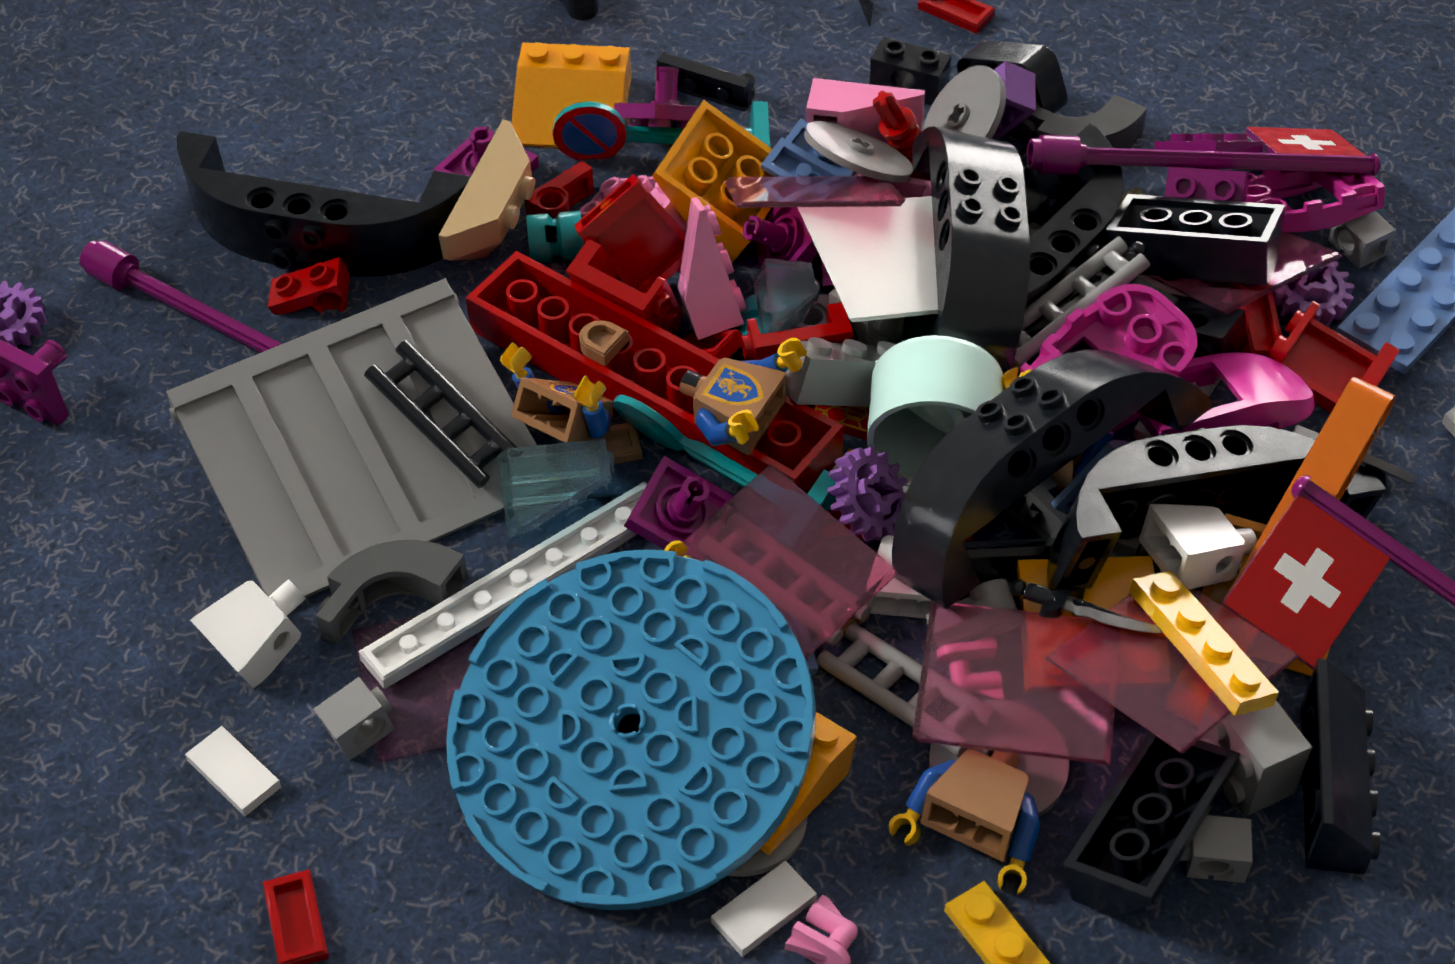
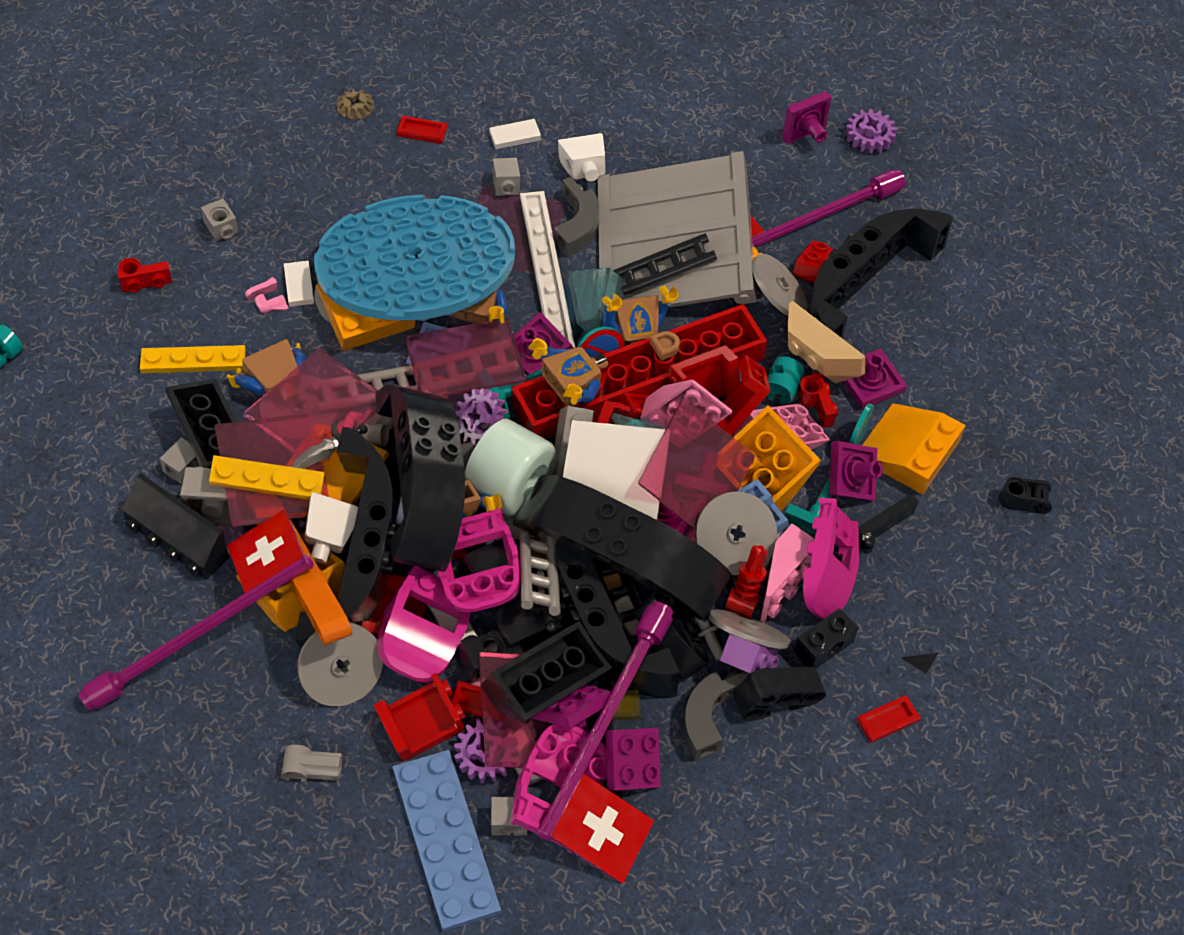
camera: 115 degrees right, 5 degrees up
(399, 284) = (777, 283): none -> light grey piece
(837, 59) = (829, 581): none -> dark pink slope

